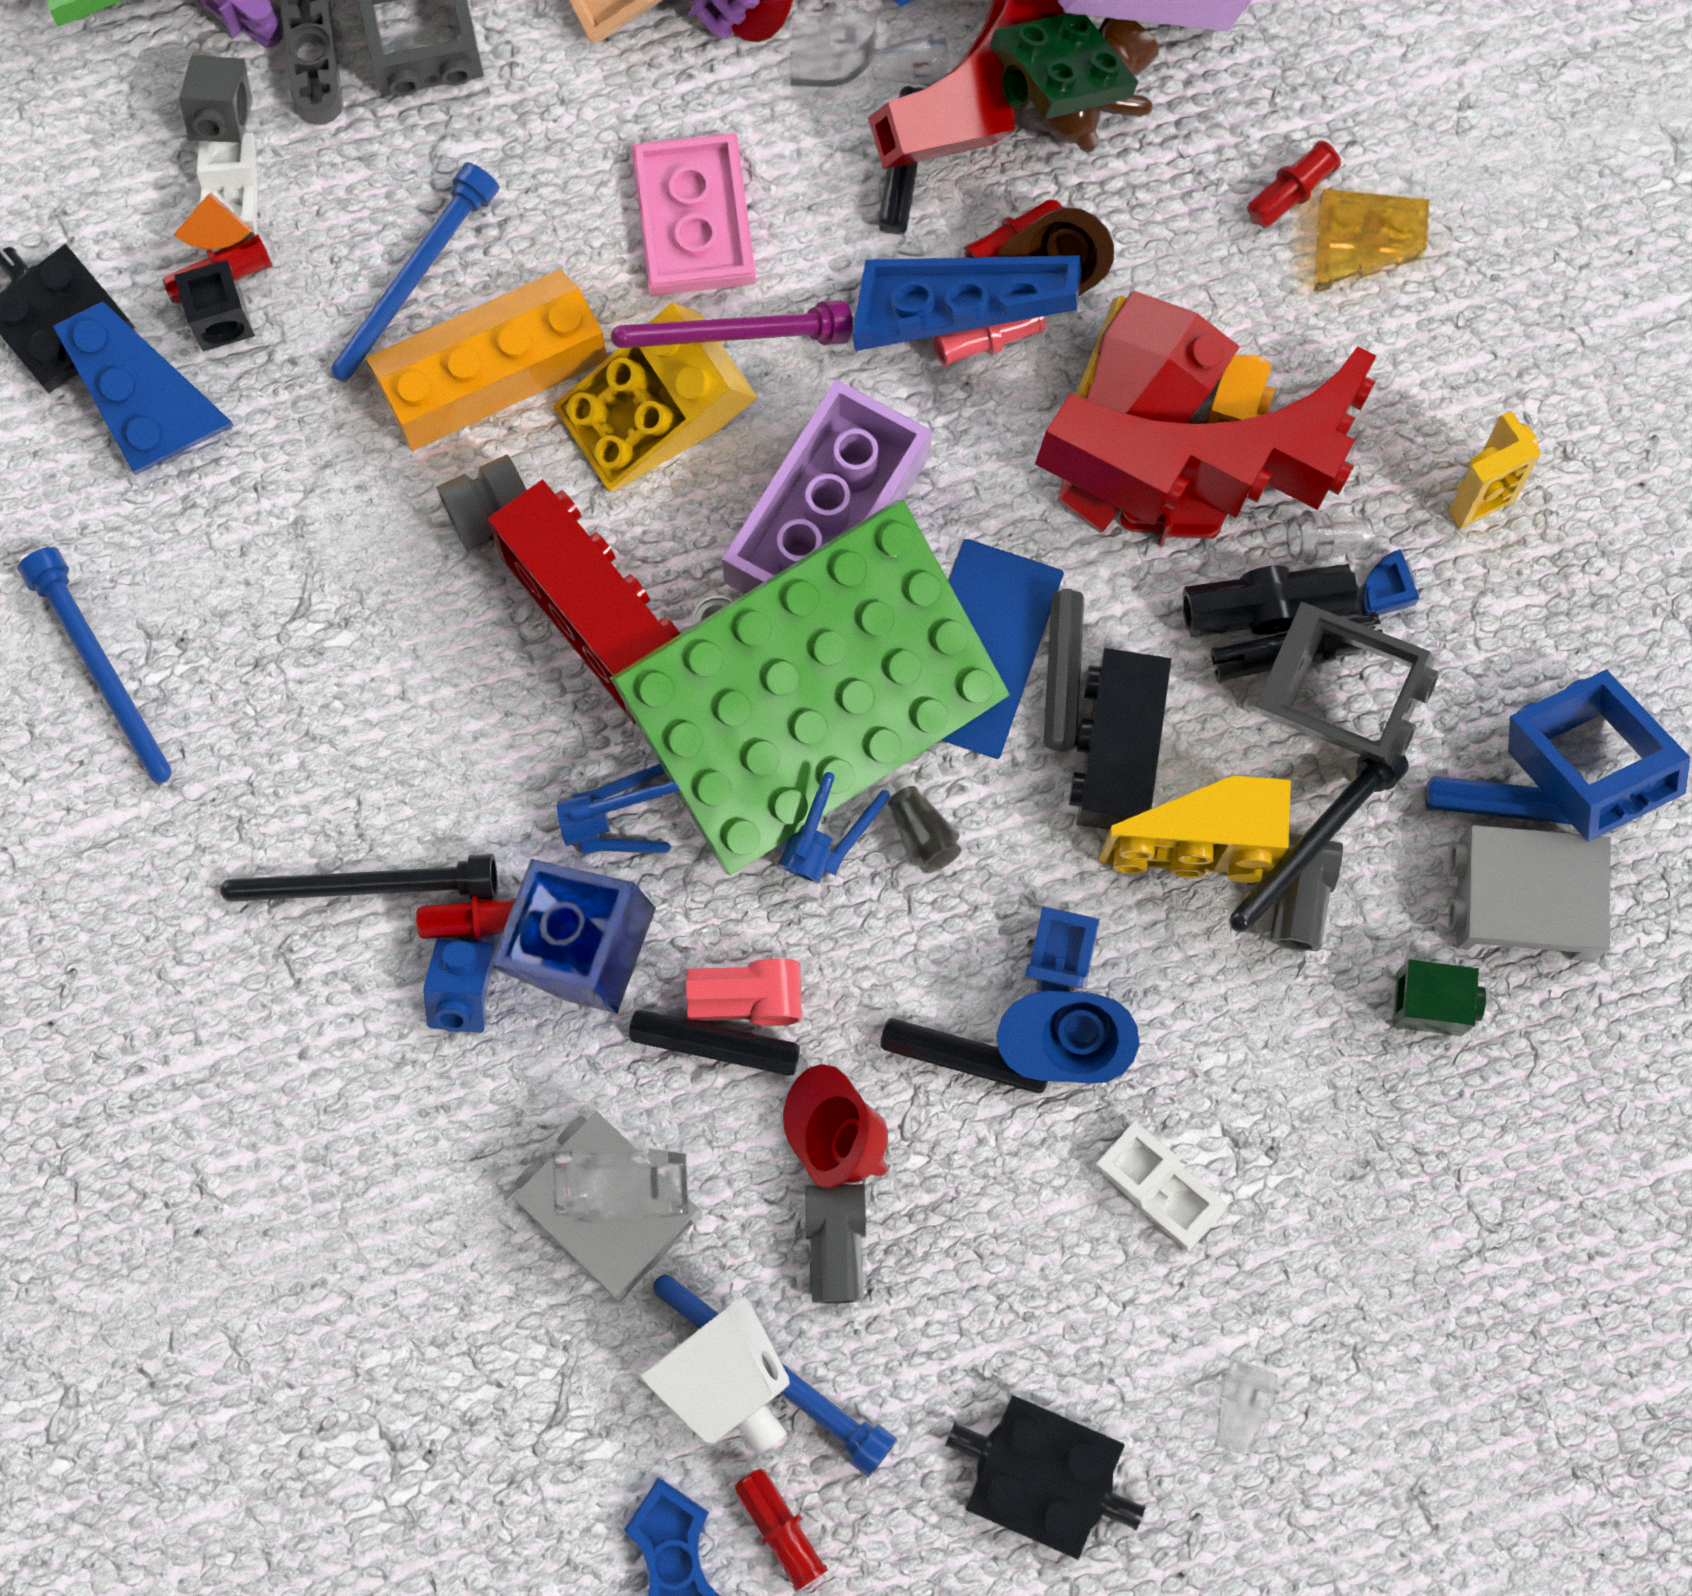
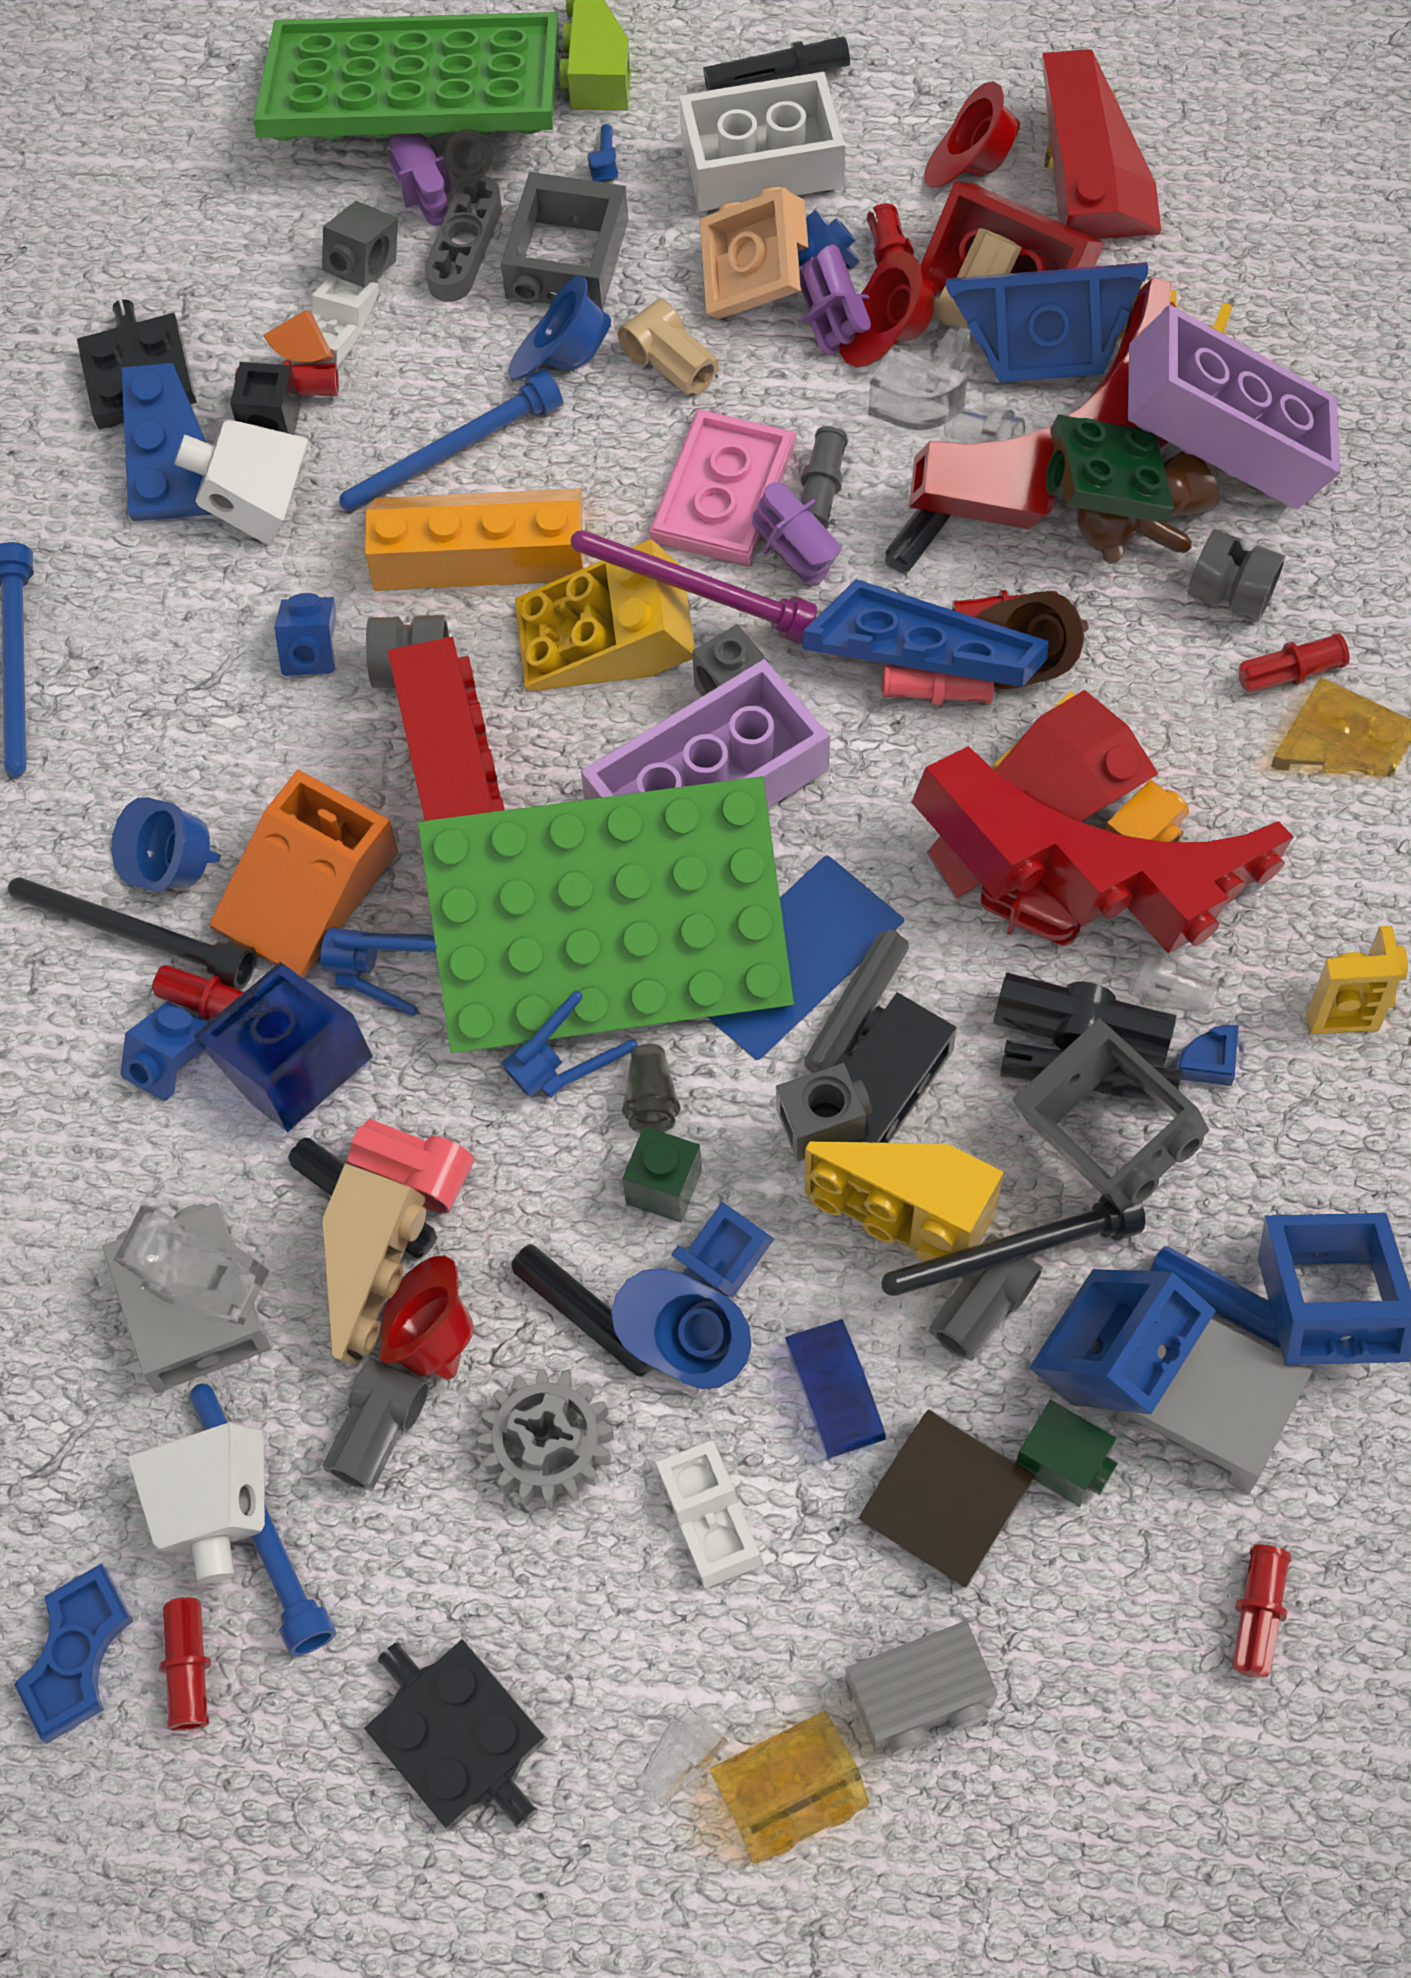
camera: 30 degrees right, 10 degrees down
(236, 388) = (245, 475): none -> white torso
(350, 794) = (160, 845): none -> blue piece
(375, 523) = (305, 634): none -> blue bracket
(464, 118) = (566, 333): none -> blue piece
(503, 764) = (303, 872): none -> orange slope
(560, 86) = (660, 339): none -> tan piece
(747, 1085) = (363, 1248): none -> tan slope
(785, 171) = (823, 475): none -> dark grey pin
(791, 238) = (795, 533): none -> medium lavender arm
(794, 396) = (723, 659): none -> dark grey brick
(962, 1190) = (538, 1462): none -> light grey gear
(976, 904) = (662, 1174): none -> dark green brick
(1084, 808) = (830, 1086): none -> dark grey brick
(1209, 120) = (1236, 575): none -> dark grey wheel
(1216, 1028) = (835, 1388): none -> clear blue slope
(1346, 1386) = (790, 1787): none -> clear yellow bracket
(1355, 1080) = (947, 1497): none -> dark brown slope
(1414, 1254) = (922, 1688): none -> light grey brick
(1482, 911) = (1130, 1319): none -> blue window
(1652, 1058) = (1261, 1610): none -> red axle

